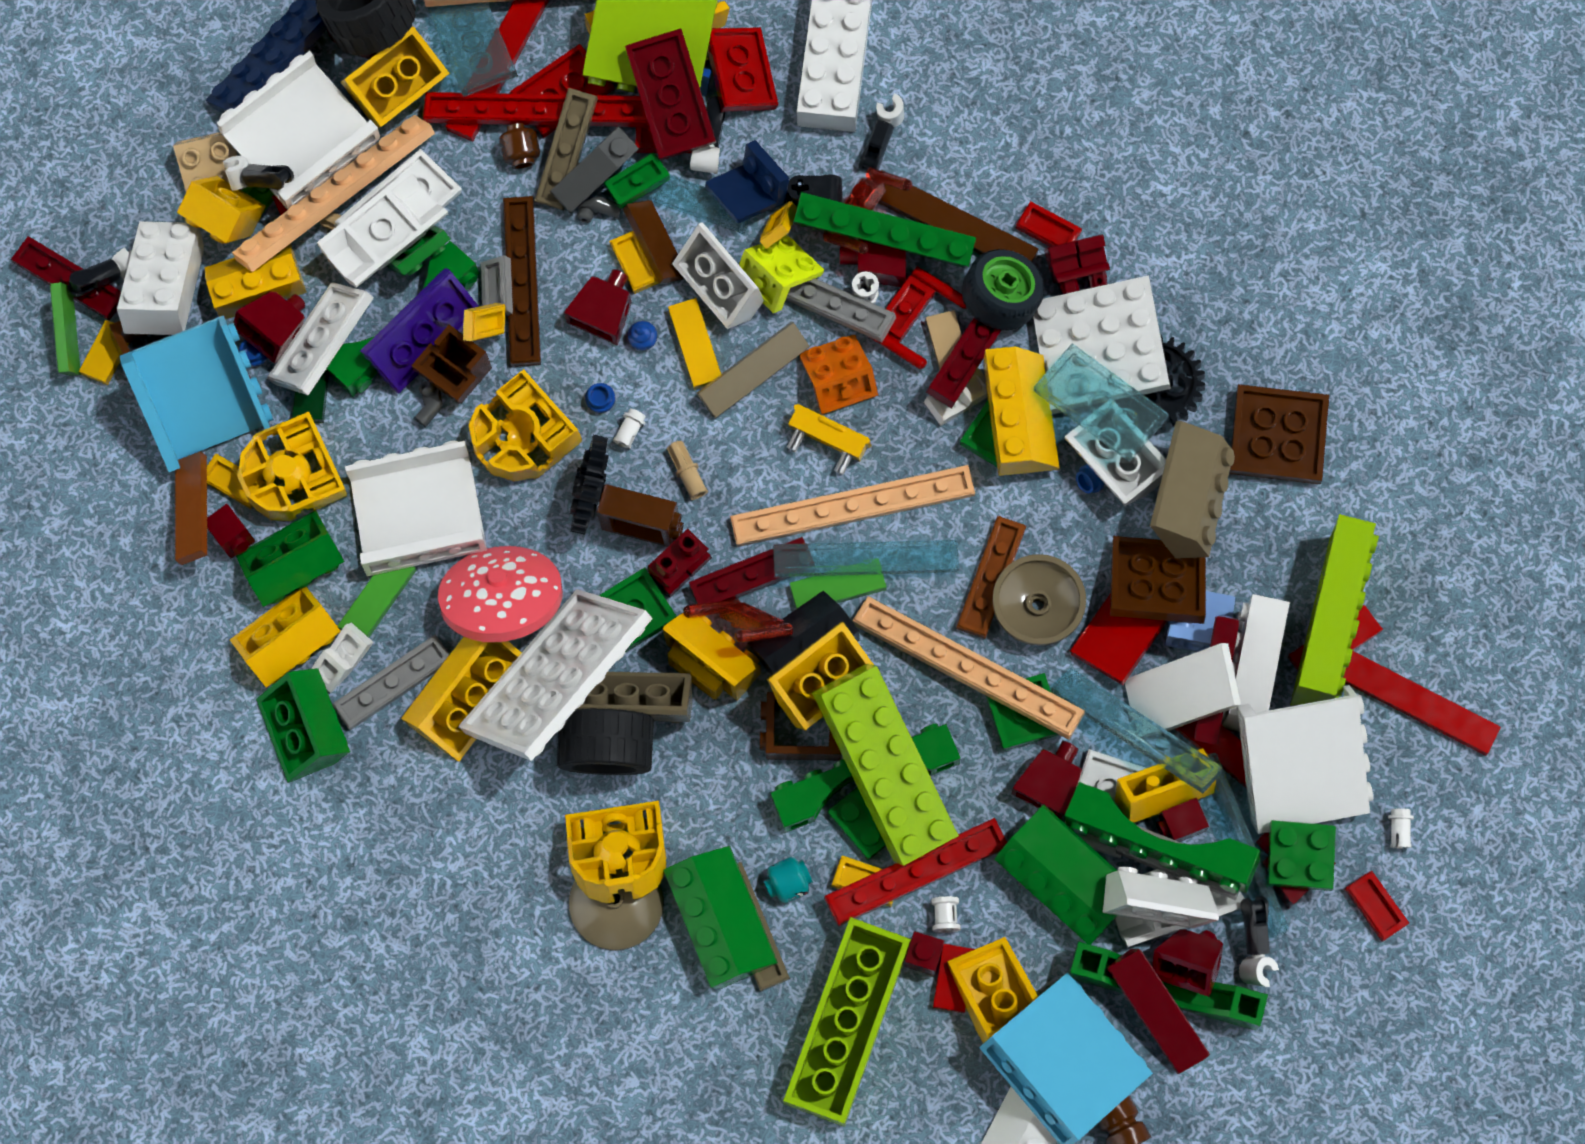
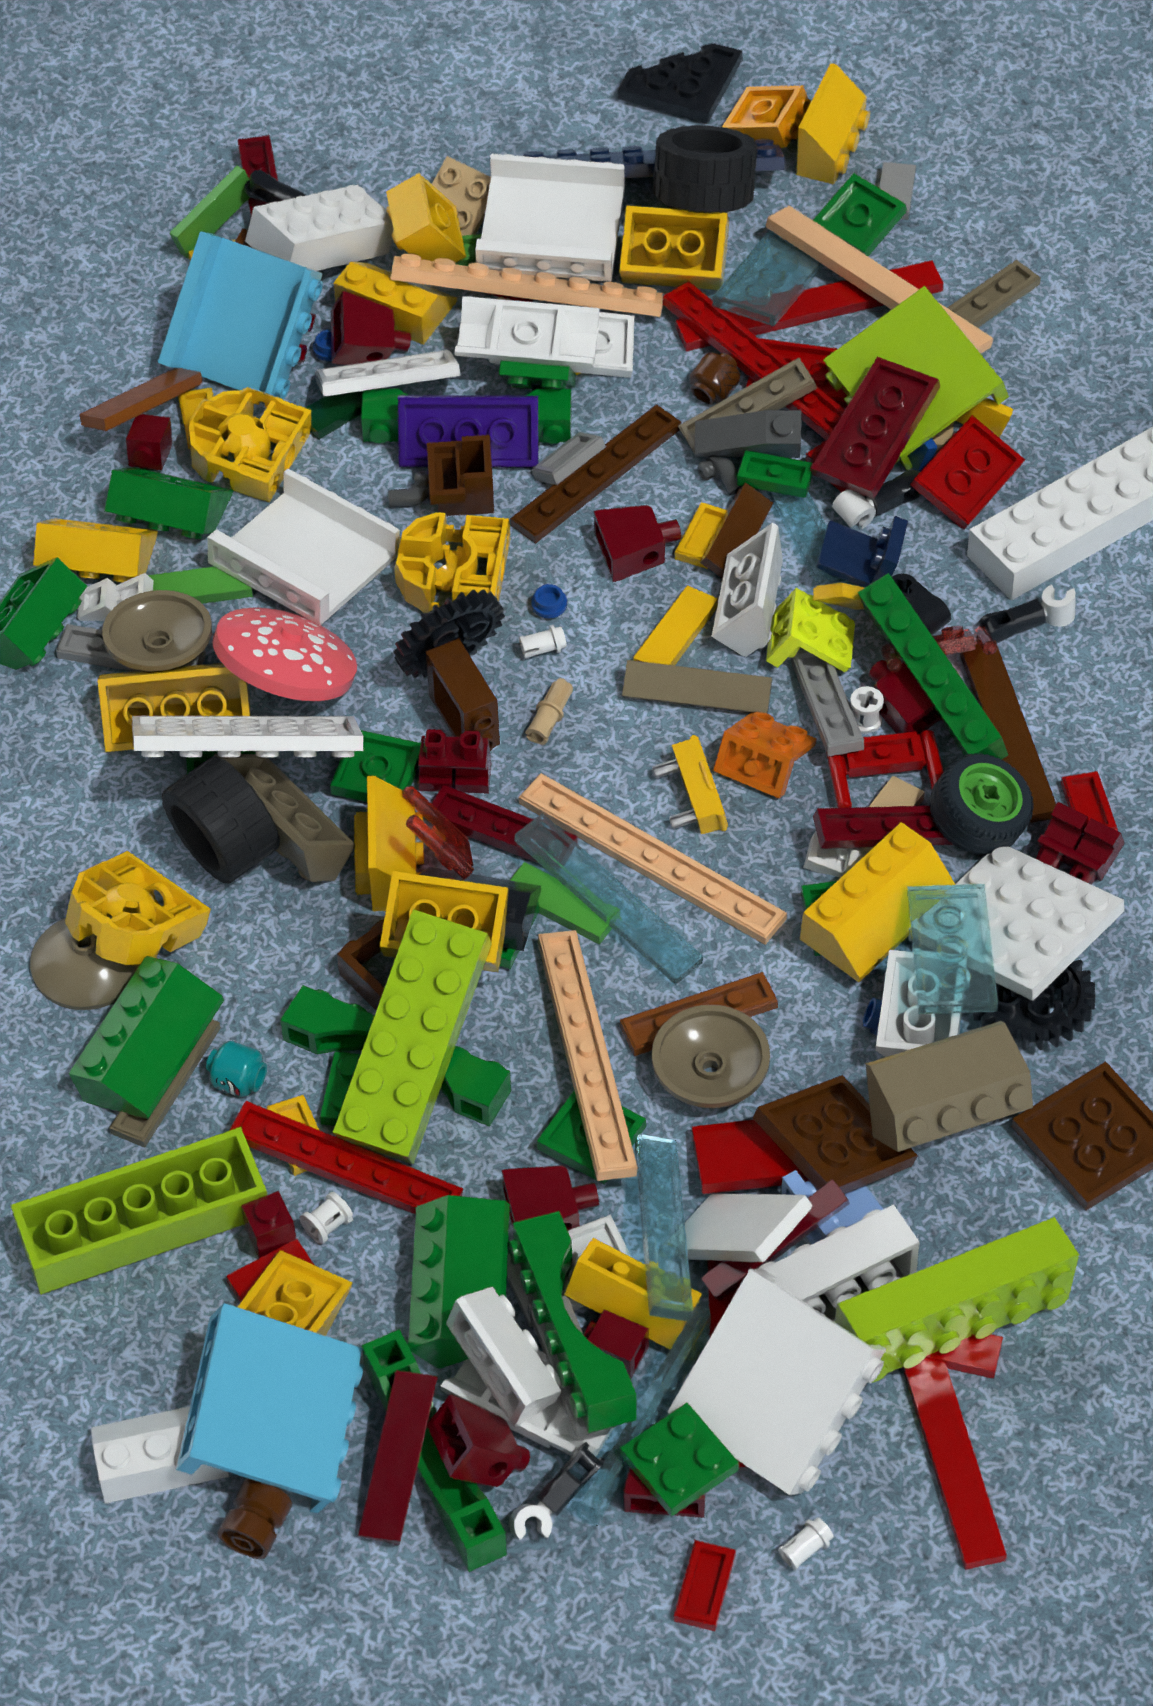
camera: 45 degrees right, 20 degrees down
(264, 176) = (473, 214): black piece -> none
(397, 644) = (157, 630): none -> dark tan dish
(484, 321) = (519, 458): yellow tile -> none
(642, 335) = (640, 587): blue plate -> none

